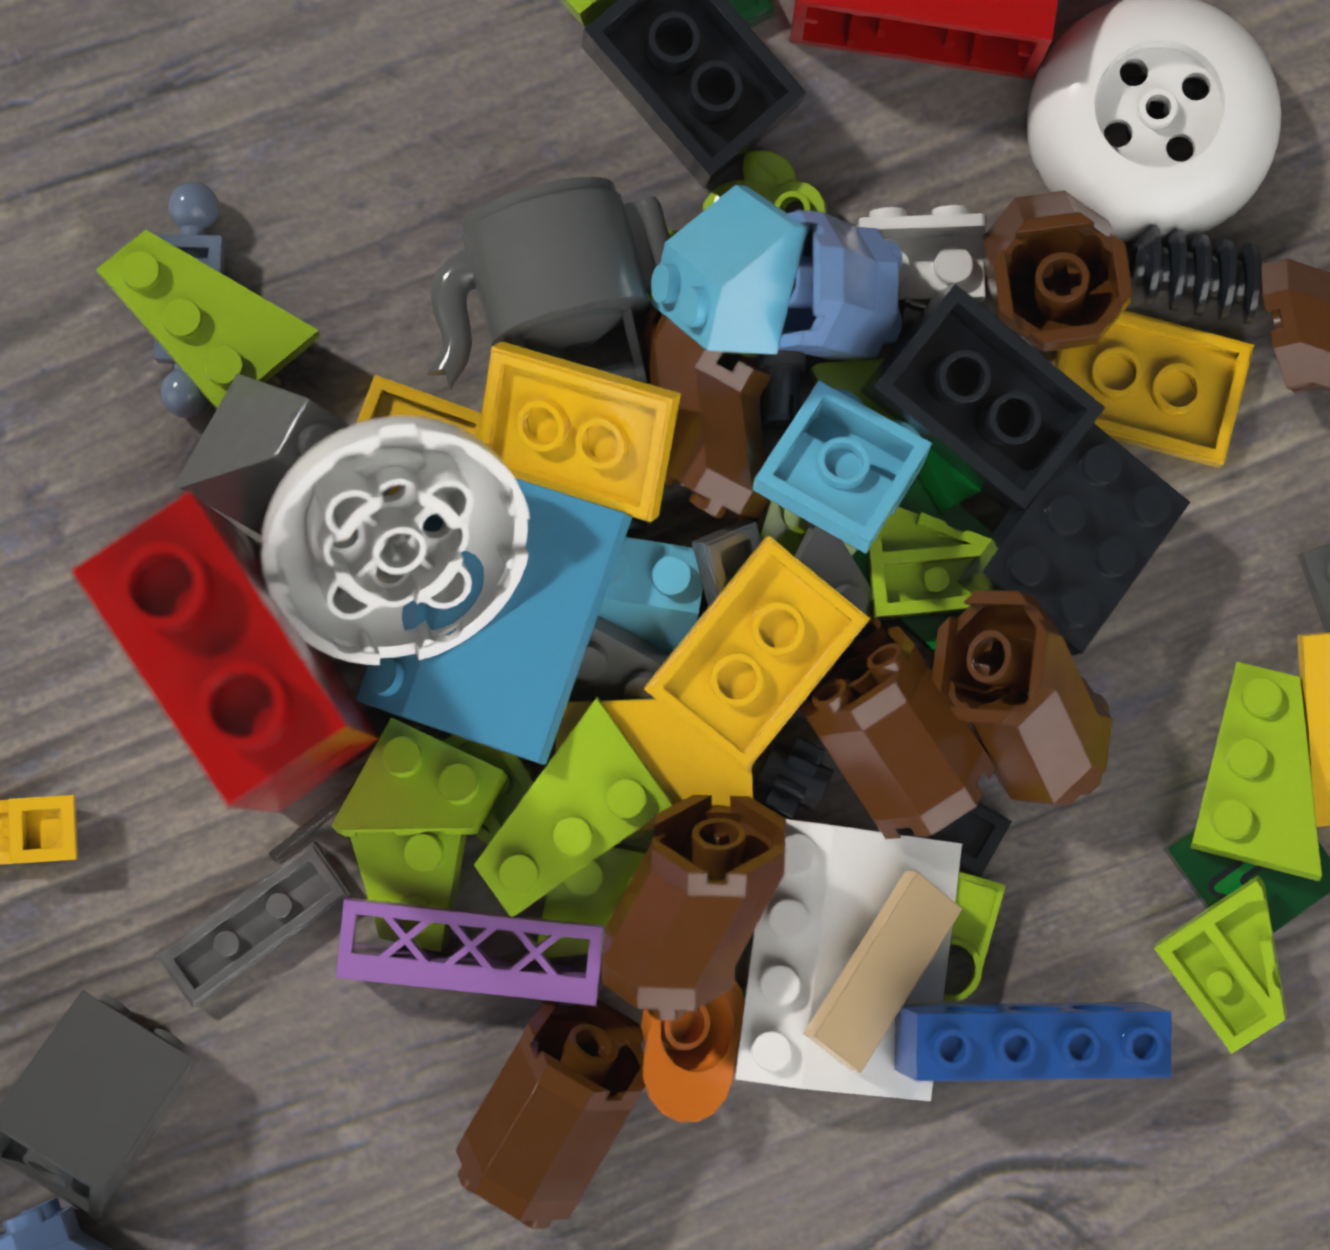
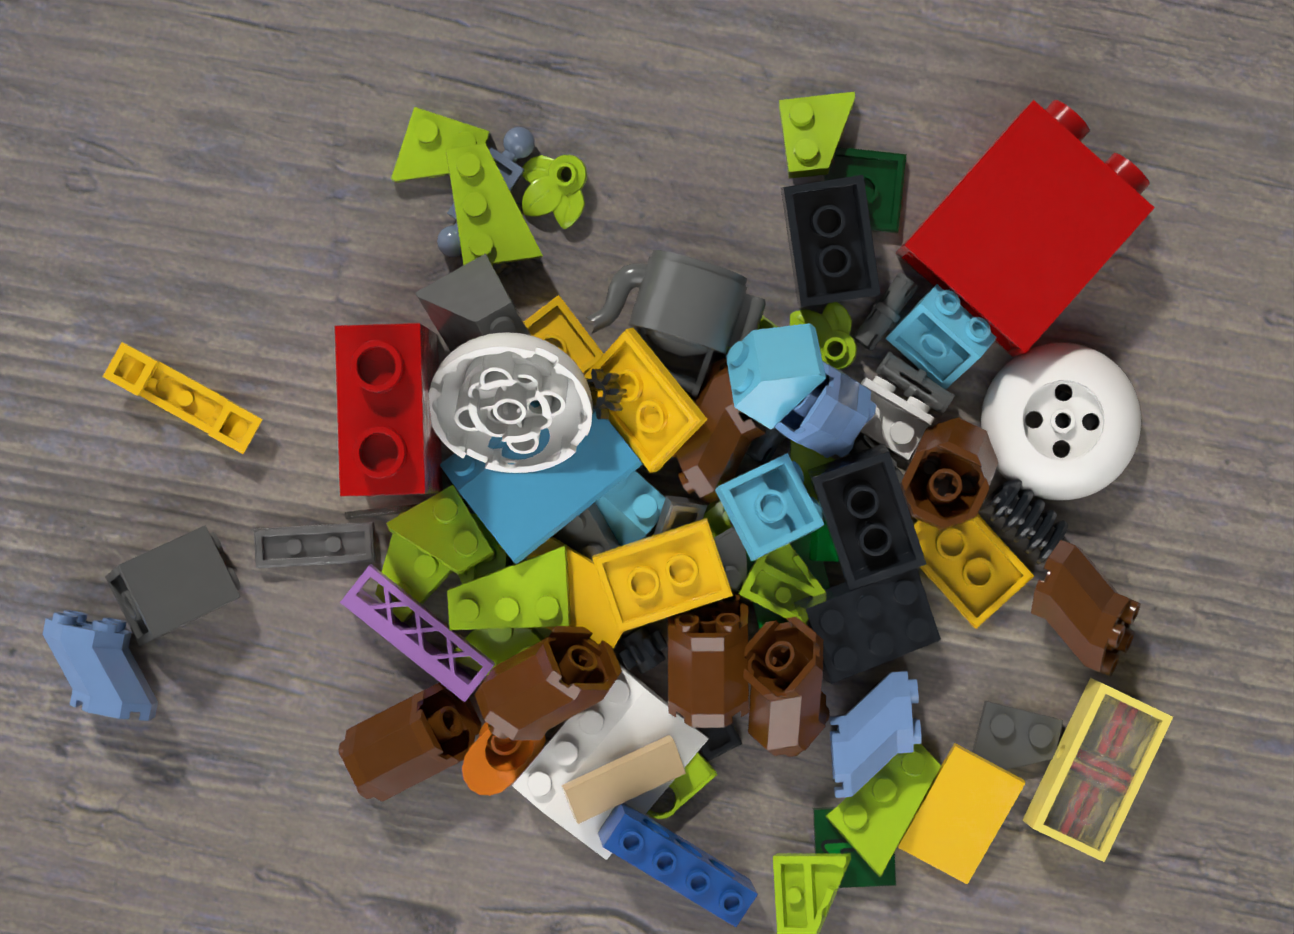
camera: 30 degrees right, 5 degrees up
(68, 289) = (426, 145): none -> lime wing
(278, 246) = (550, 192): none -> lime plate
(529, 445) = (611, 393): none -> black gear
(827, 122) = (885, 311): none -> dark grey pin
(924, 101) = (942, 336): none -> medium azure plate
(927, 190) = (938, 399): none -> dark grey pin
(1182, 686) = (874, 732): none -> medium blue brick

